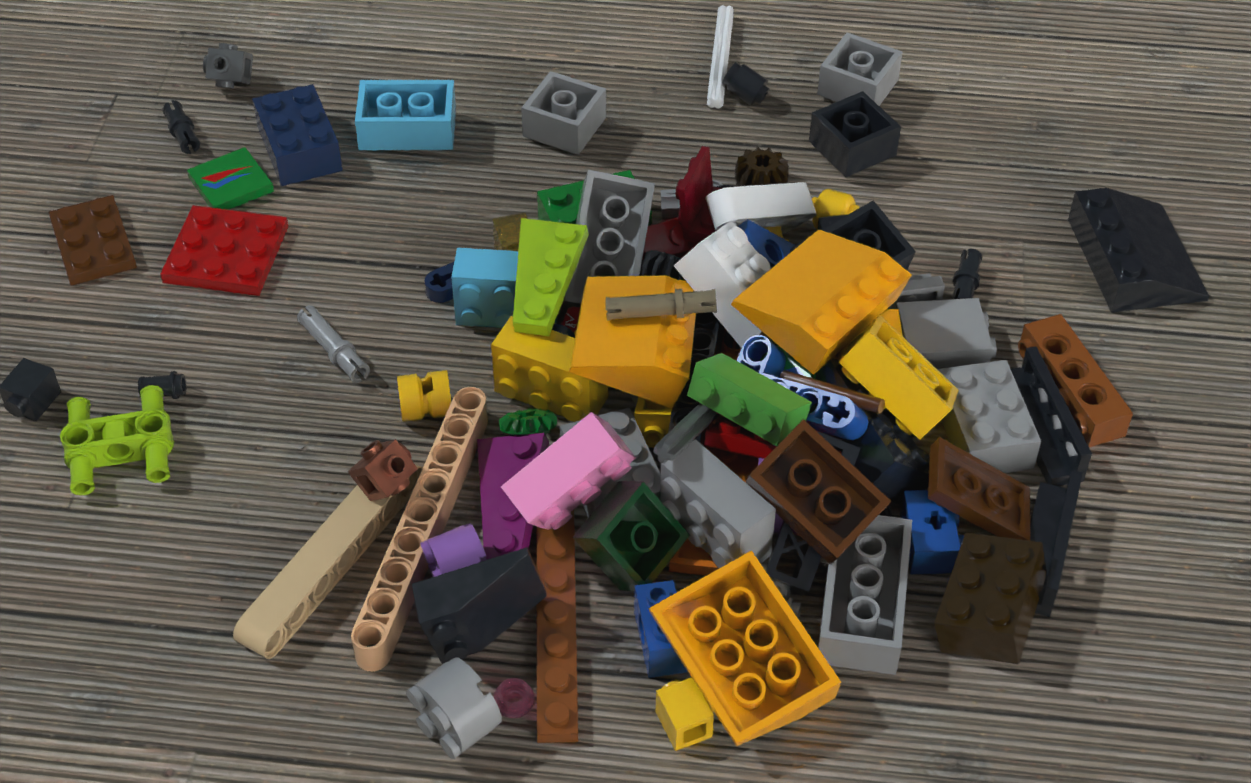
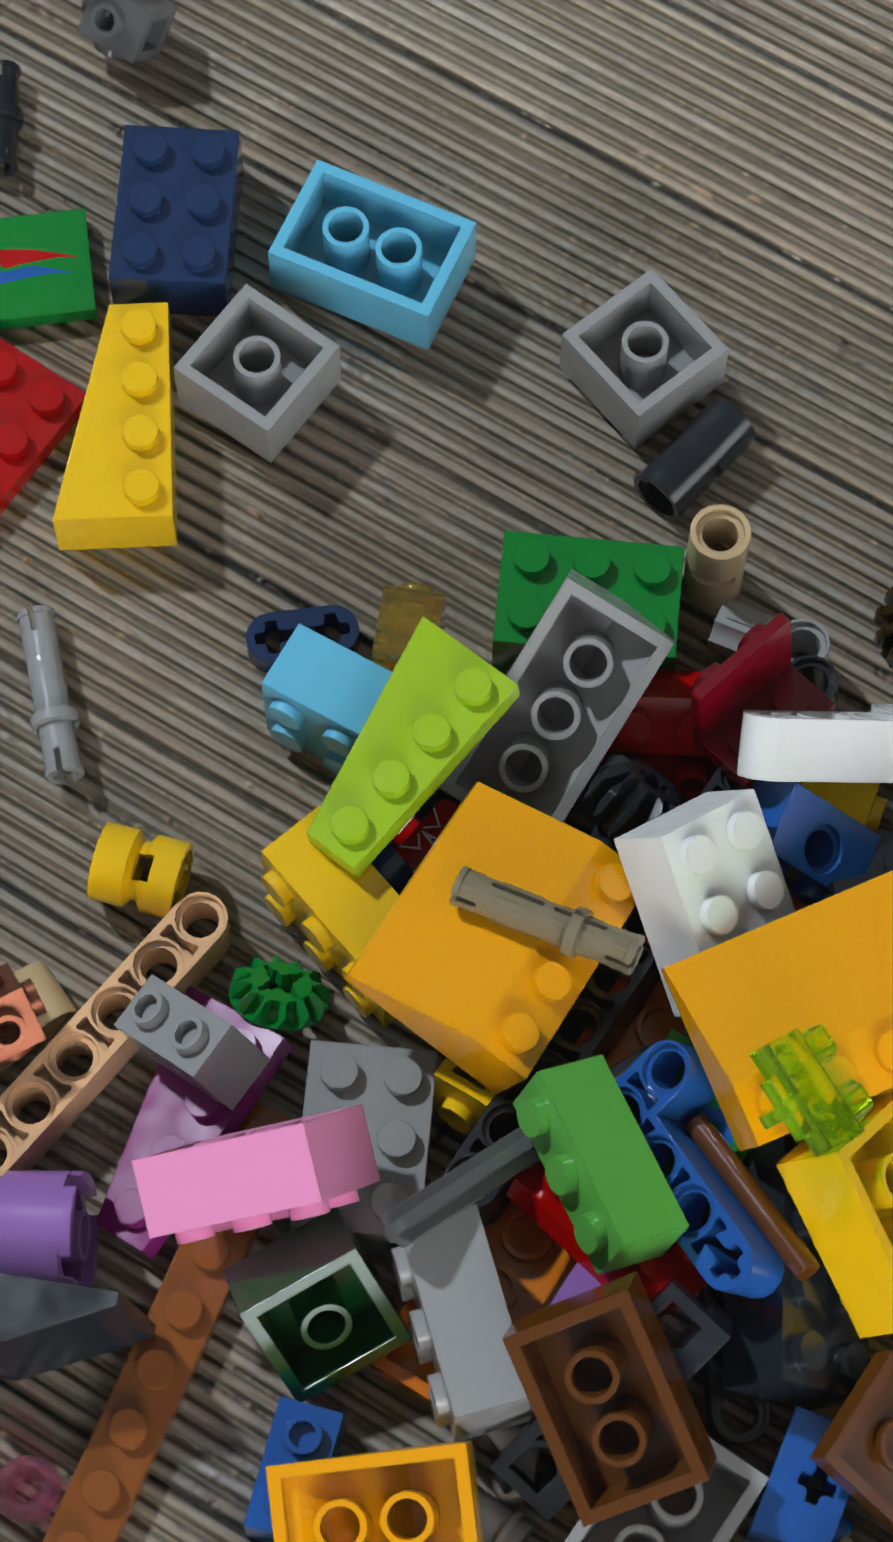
camera: 25 degrees right, 20 degrees up
(322, 229) = (123, 449): none -> yellow wedge
(373, 176) = (258, 372): none -> light grey brick
(497, 444) = (192, 1042): none -> light grey brick
(611, 144) = (694, 458): none -> black pin
(648, 163) = (716, 556): none -> tan pin
(840, 306) = (805, 1093): none -> clear neon green hips

